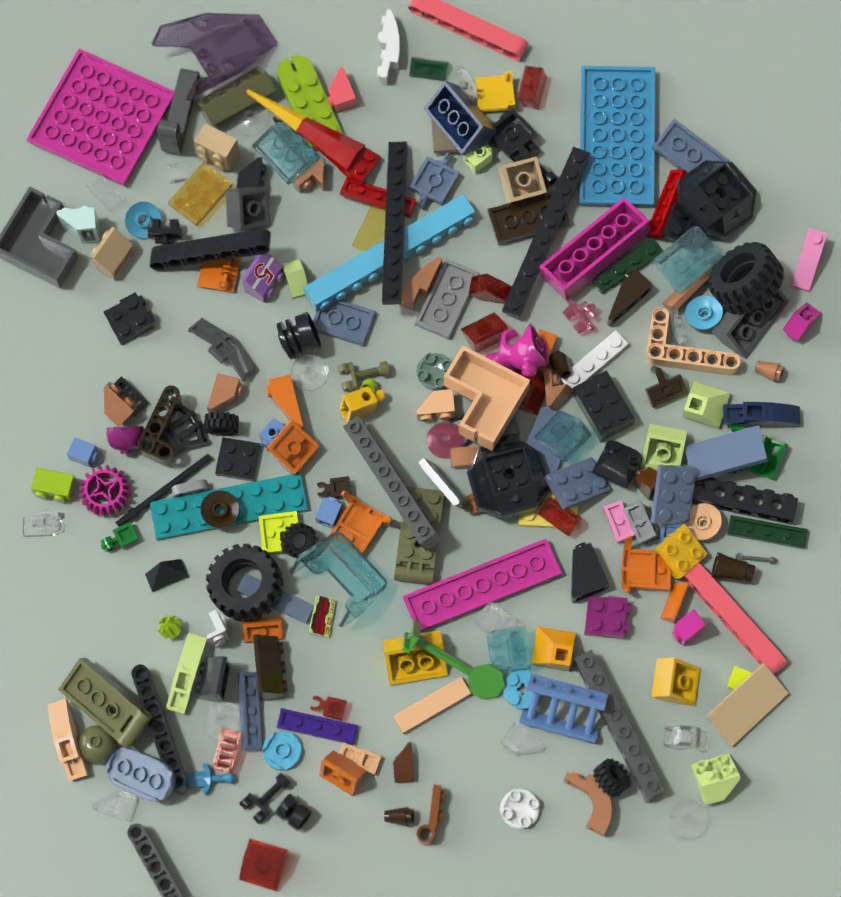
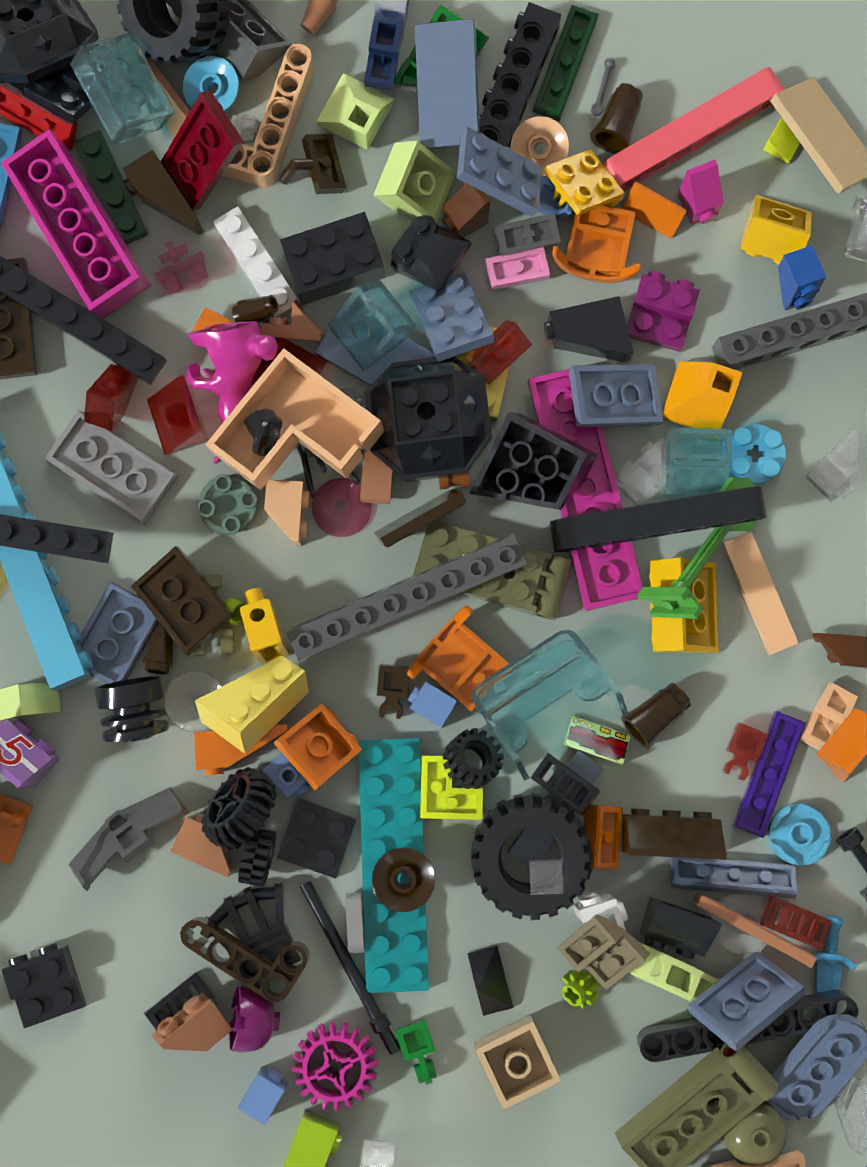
camera: 85 degrees left, 10 degrees up
(121, 594) = (517, 1062): none -> tan brick
(175, 721) = (746, 1000): none -> sand blue plate
(194, 630) = (603, 950): none -> dark tan slope
(218, 722) = (754, 929): none -> nougat tile
(232, 587) = (546, 876): none -> clear tile
(248, 406) = (238, 808): none -> black gear
(285, 610) = (587, 800): none -> black slope
(313, 405) = (253, 703): none -> light yellow wedge
(336, 347) = (159, 653): none -> dark brown cone
(343, 648) = (656, 715): none -> dark brown plant
(369, 353) = (182, 600): none -> dark brown tile
(421, 283) = (77, 500): nougat slope -> none
(465, 626) = (658, 519): none -> black beam
(478, 379) = (265, 430): none -> black piece
(488, 546) = (533, 465): none -> black wedge
(543, 593) = (615, 395): none -> sand blue plate
(567, 692) = (787, 386): medium blue fence -> none
(641, 696) = (800, 278): none -> blue slope
(650, 311) = (201, 150): none -> dark red plate

